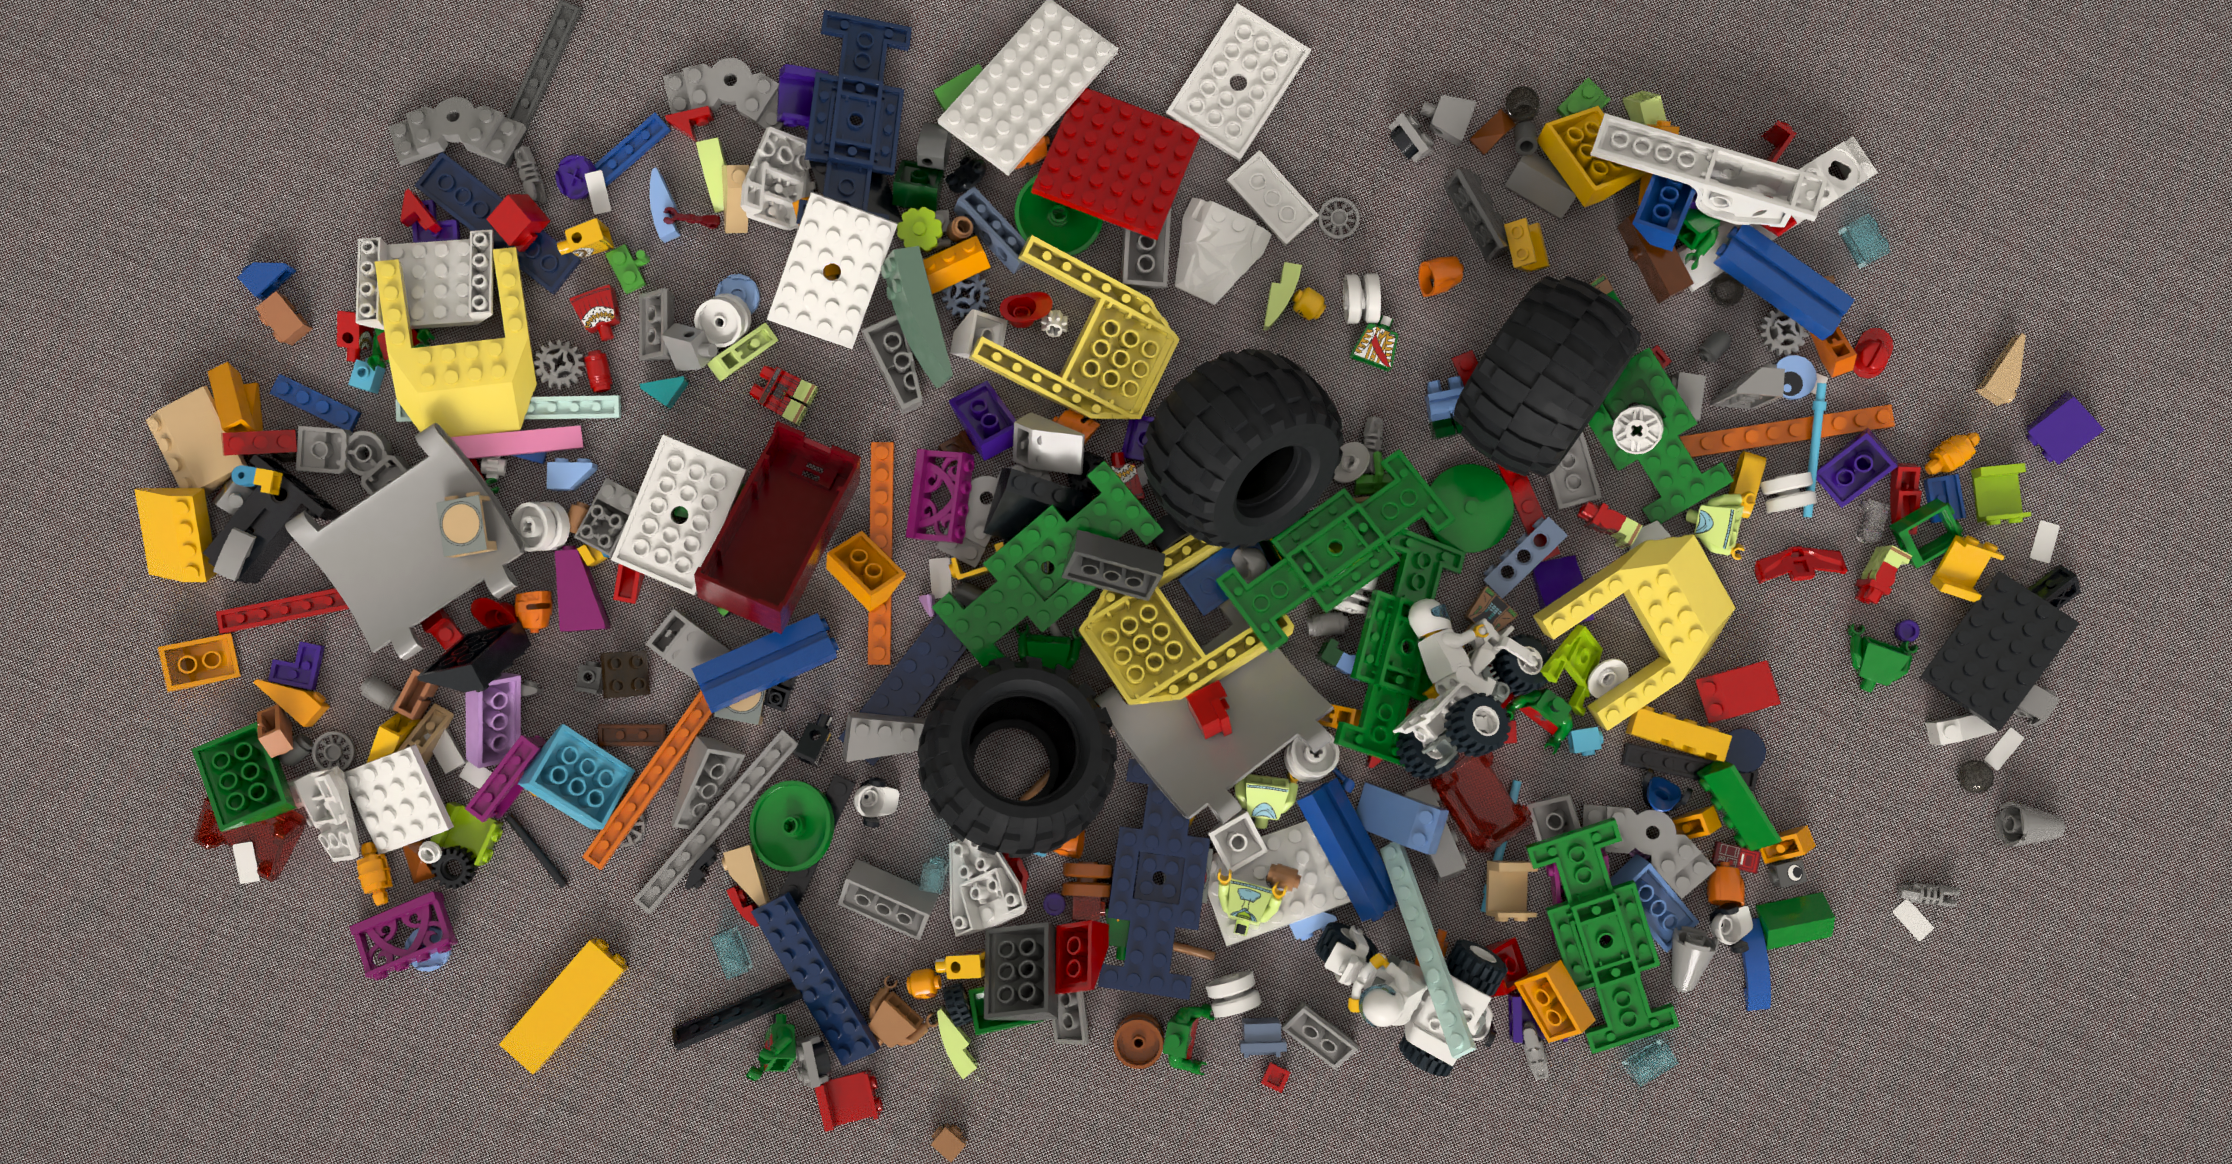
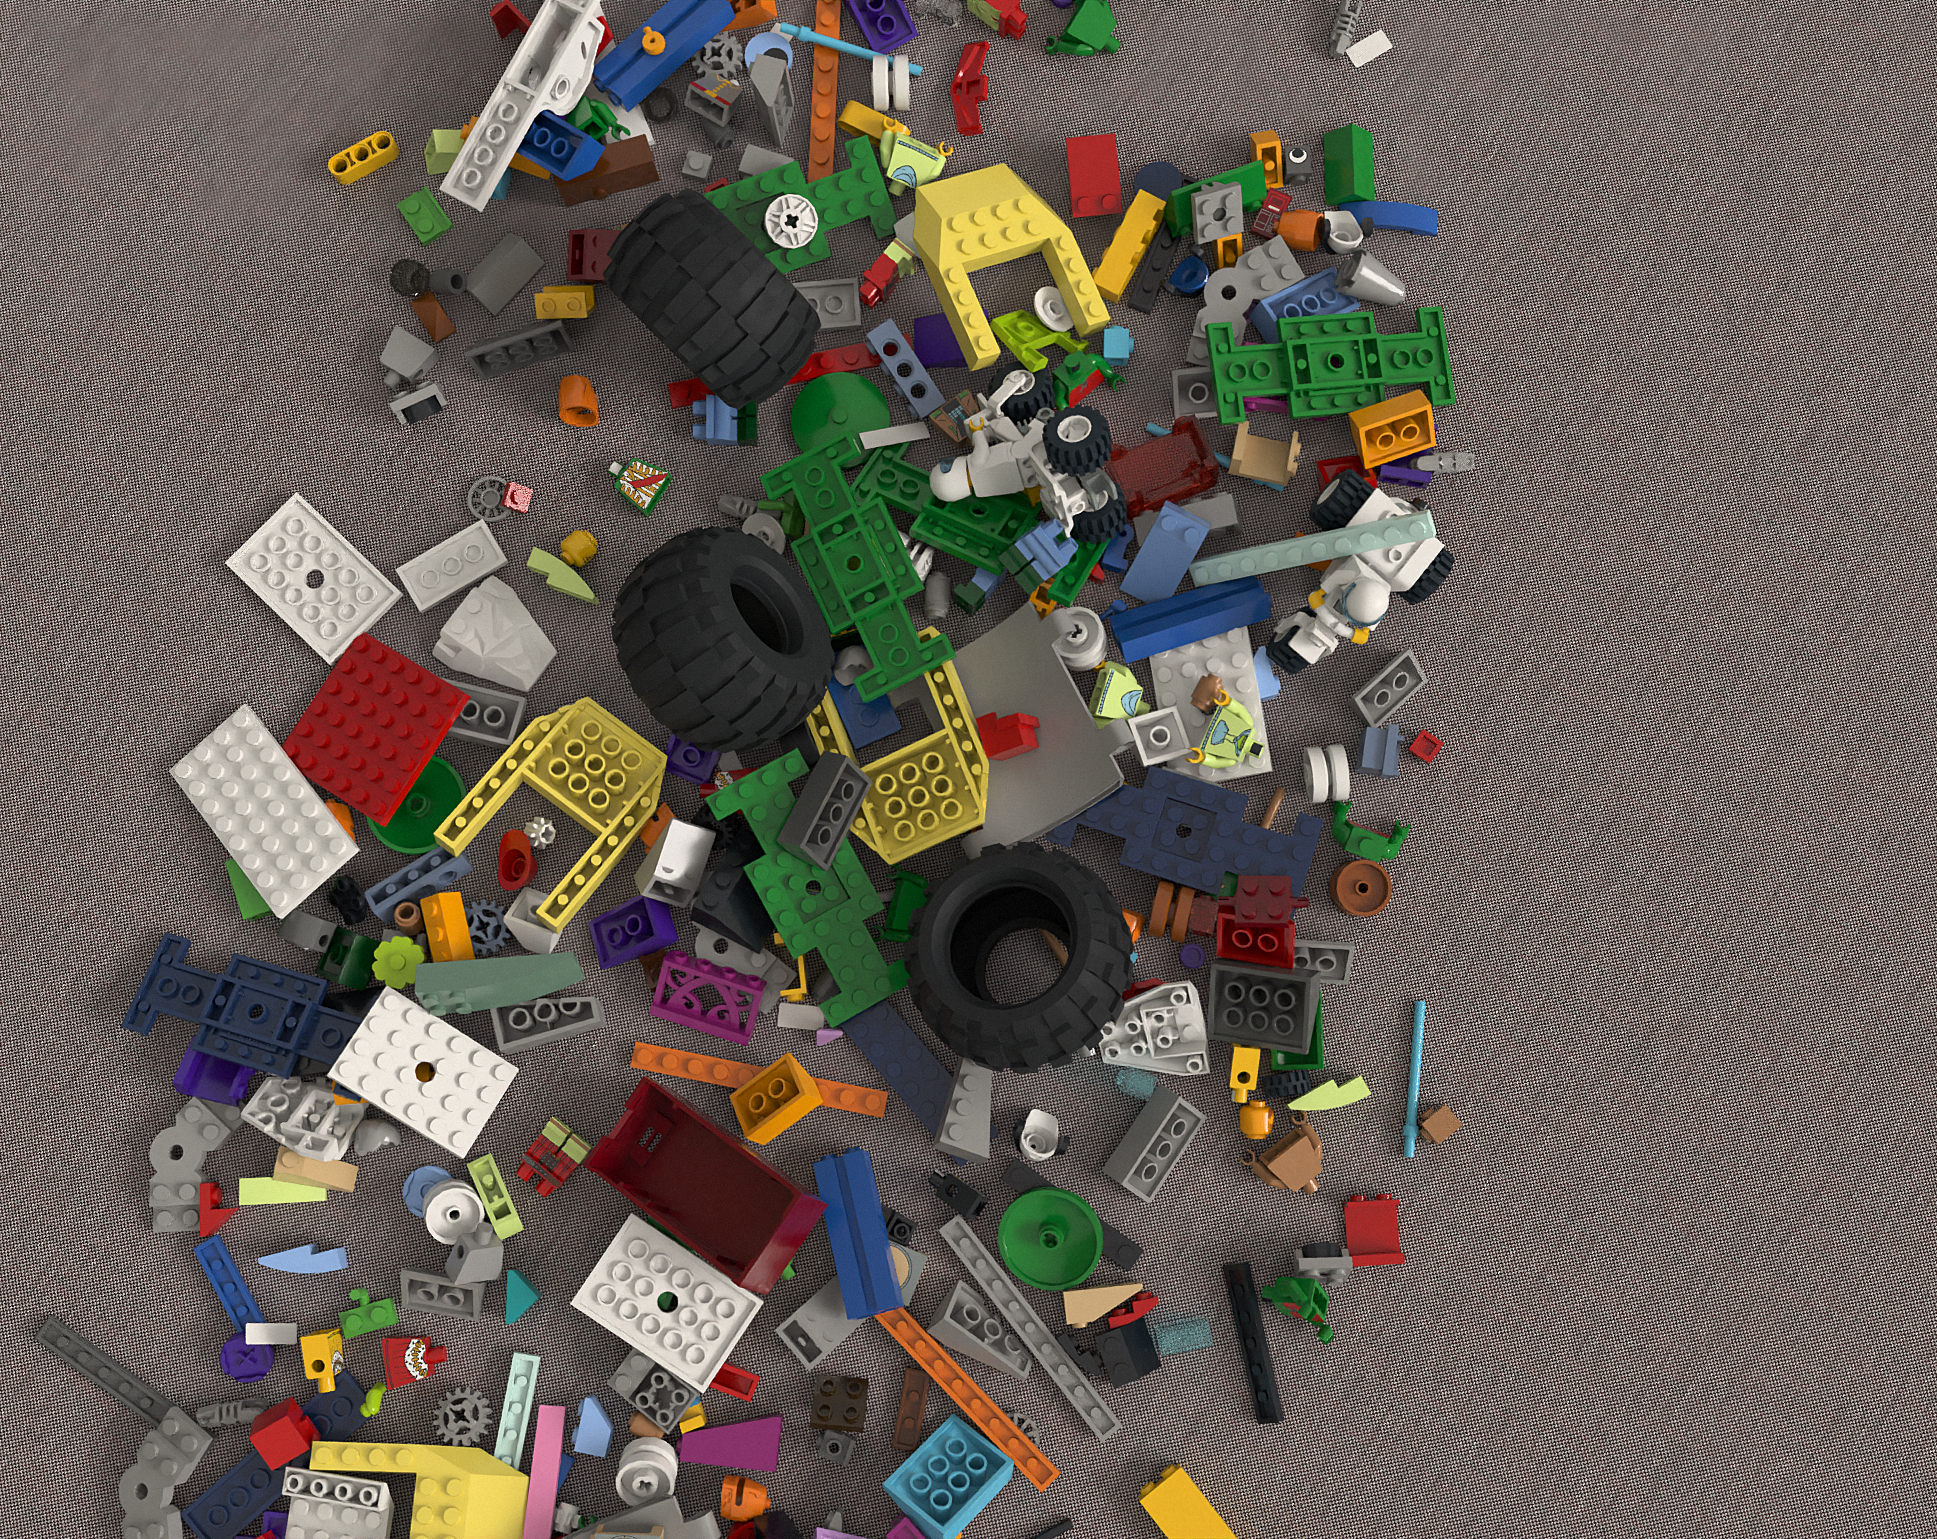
camera: 75 degrees left, 5 degrees down
(559, 288) = (373, 1400): none -> lime arm
(598, 371) = (481, 1371): red head -> none
(709, 221) = (334, 1209): dark red piece -> none
(709, 908) = (1127, 1352): none -> black slope
(774, 240) = (375, 1134): none -> light grey hair
(815, 979) = (1229, 1241): dark blue plate -> none
(940, 1117) = (1410, 1130): none -> medium azure bar
(1107, 959) = (1263, 901): none -> dark red plate
(1344, 240) = (516, 497): none -> plate
(1361, 299) = (585, 488): white wheel -> none
(1374, 707) = (1047, 553): none -> medium blue hips
(1395, 772) = (1114, 554): none -> blue leg
(1464, 558) = (894, 435): none -> white sticker
(1569, 148) = (469, 235): yellow slope -> none
(1575, 259) = (589, 254): none -> dark red slope
(1624, 28) = (351, 157): none -> yellow beam
(1650, 1062) = (1475, 344): clear light blue brick -> none
(1677, 334) = (697, 166): none -> light grey plate
(1724, 809) = (1217, 211): none -> light grey piece
(1742, 337) = (714, 98): none -> light grey torso
(1781, 272) = (653, 42): none -> light orange piece

